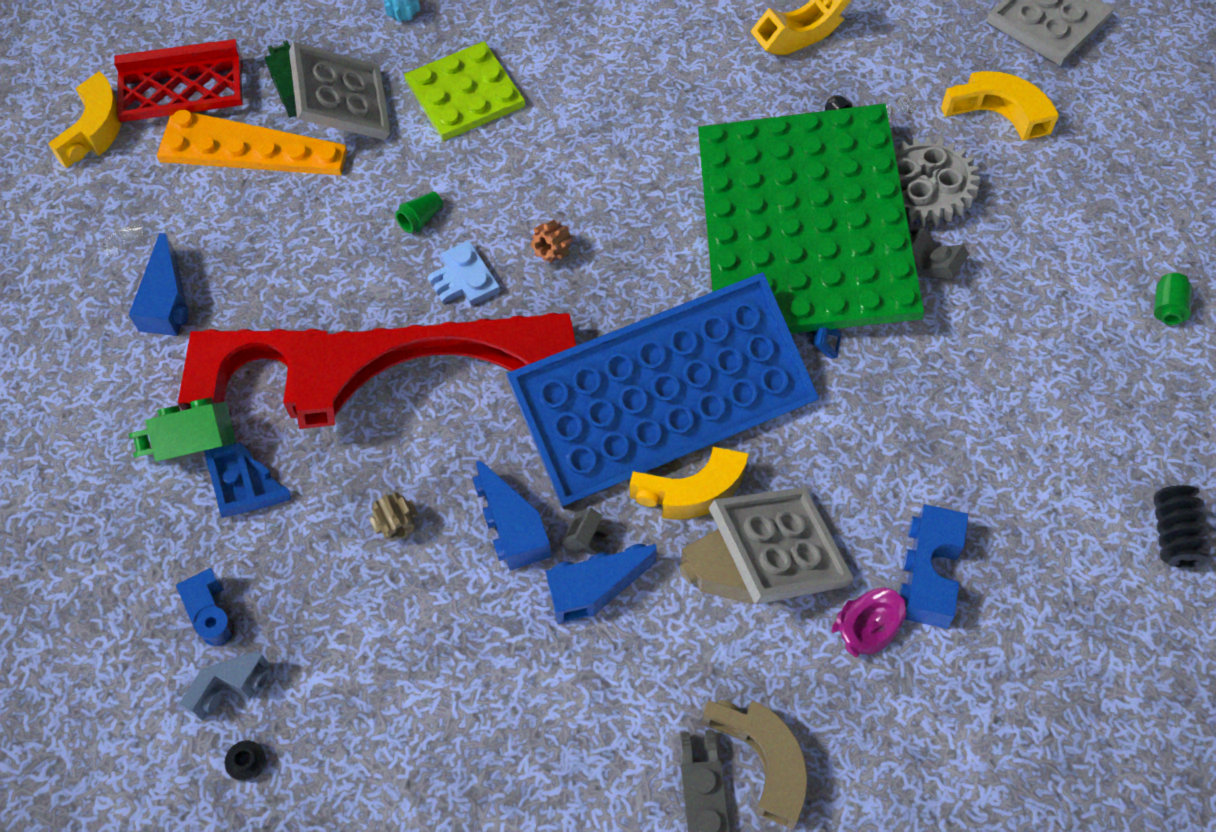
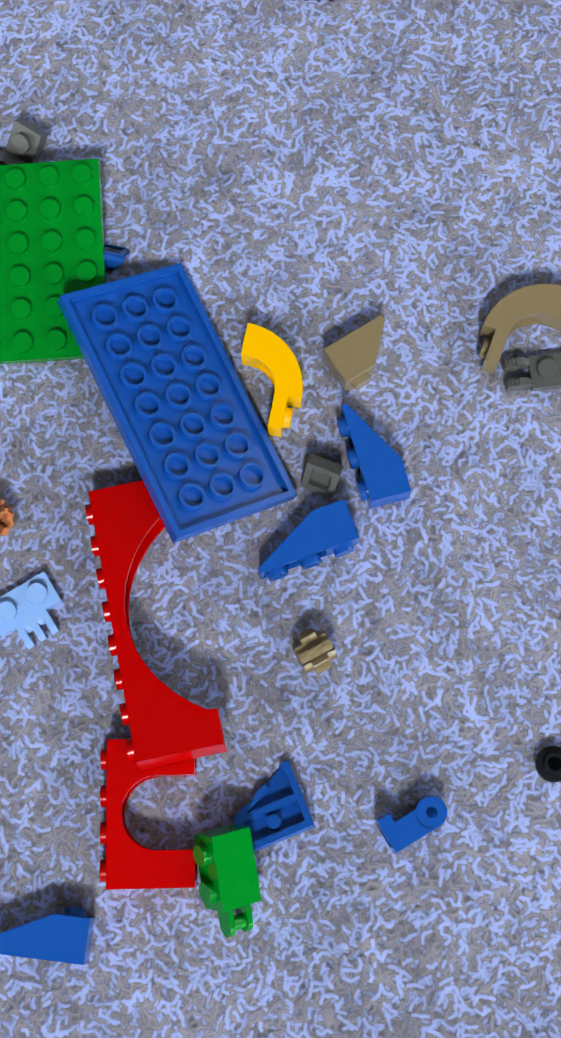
camera: 90 degrees left, 15 degrees up
(240, 674) = (478, 780): sand blue slope -> none
(780, 544) = (337, 298): light grey plate -> none
(870, 621) = (401, 231): magenta hat -> none
(928, 595) = (372, 186): blue arch -> none

